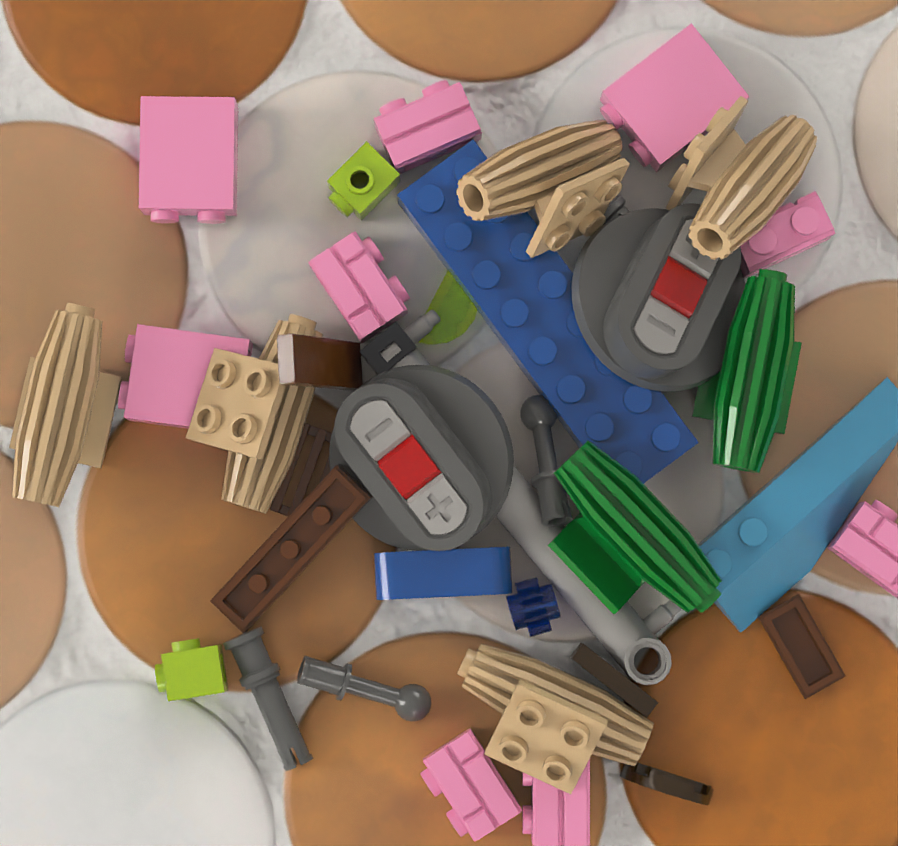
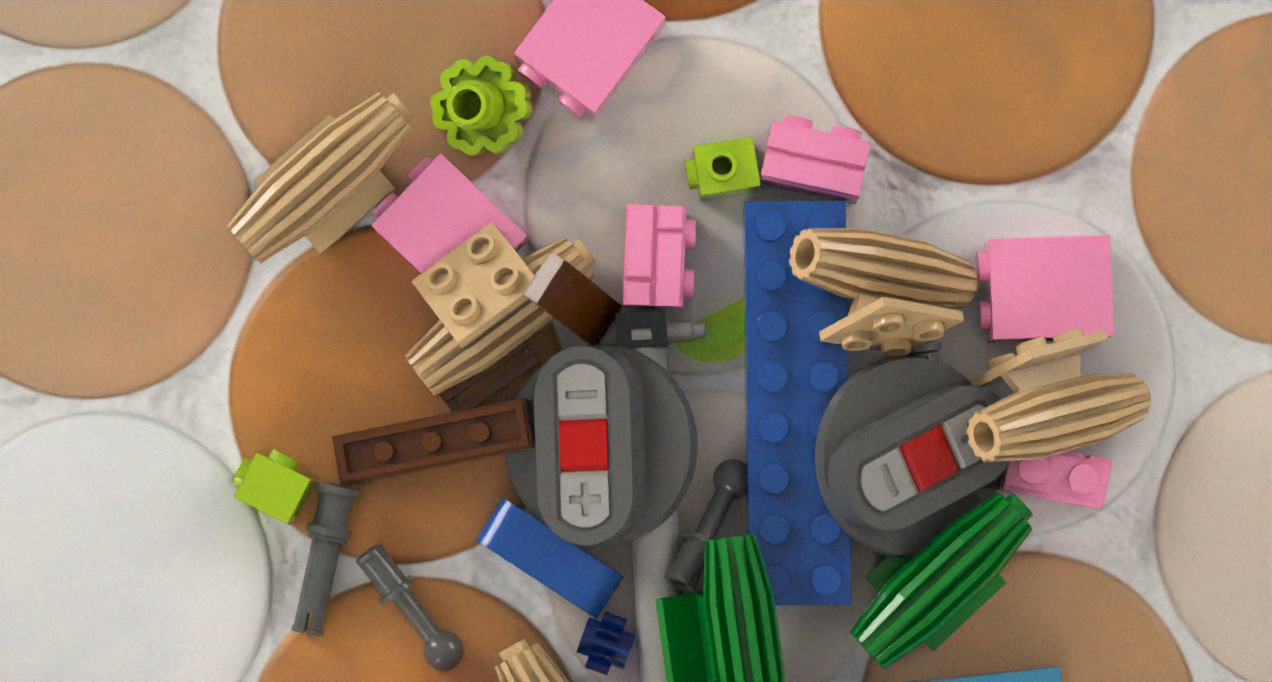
camera: 40 degrees right, 0 degrees up
(142, 266) = (481, 105): none -> lime plant

